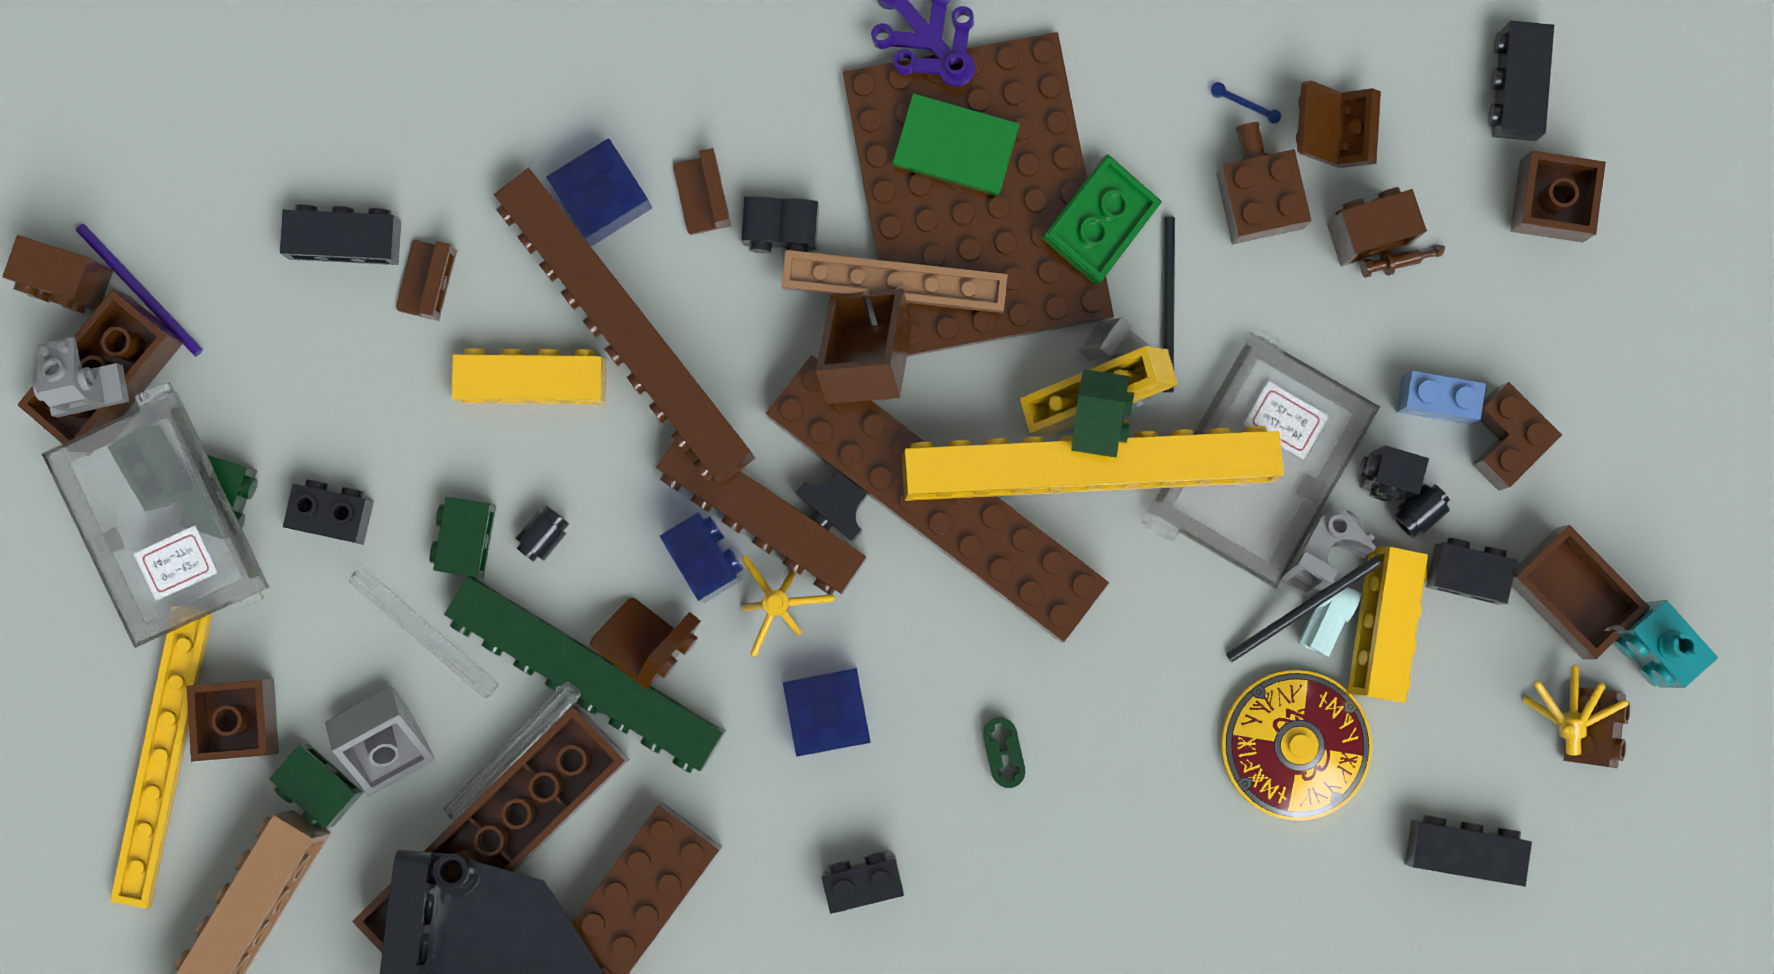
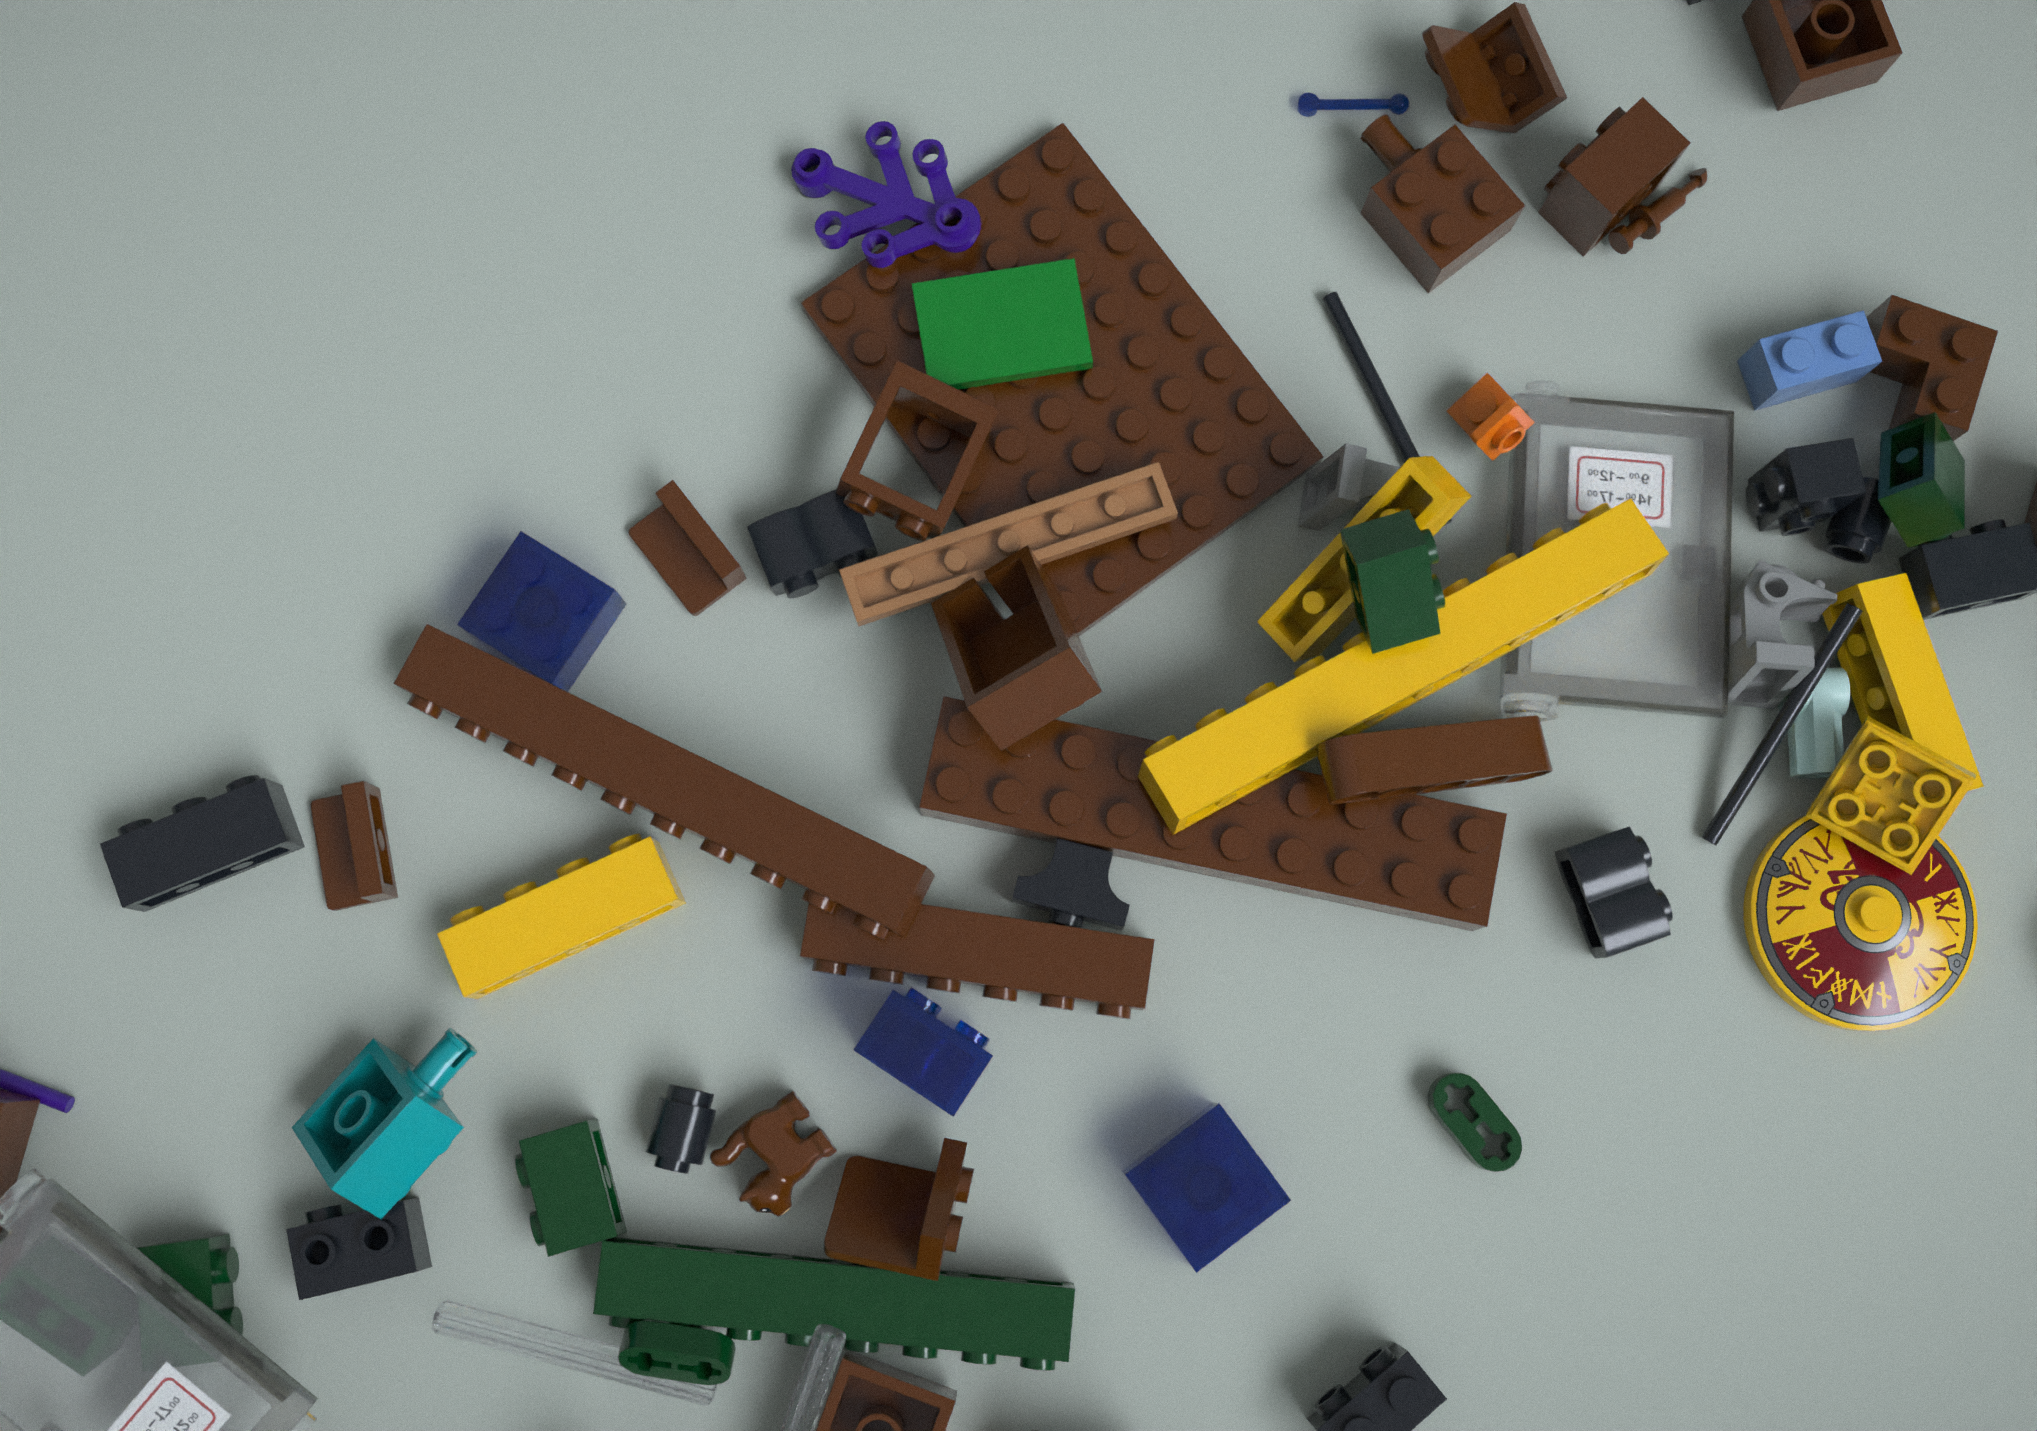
camera: 30 degrees left, 5 degrees down
(375, 448) = (384, 1122): none -> teal brick
(480, 659) = (677, 1352): none -> dark green beam
(593, 571) = (787, 1156): none -> reddish brown animal
(777, 603) = (1061, 1066): yellow plant -> none
(895, 179) = (940, 404): none -> reddish brown window
(1081, 529) = (1432, 759): none -> reddish brown beam
(1101, 219) = (1244, 336): green tile -> none
(1154, 659) = (1614, 892): none -> black brick
(1226, 340) = (1490, 417): none -> orange bracket
(1343, 680) = (1890, 795): none -> yellow tile
(1464, 503) = (1922, 480): none -> dark green brick

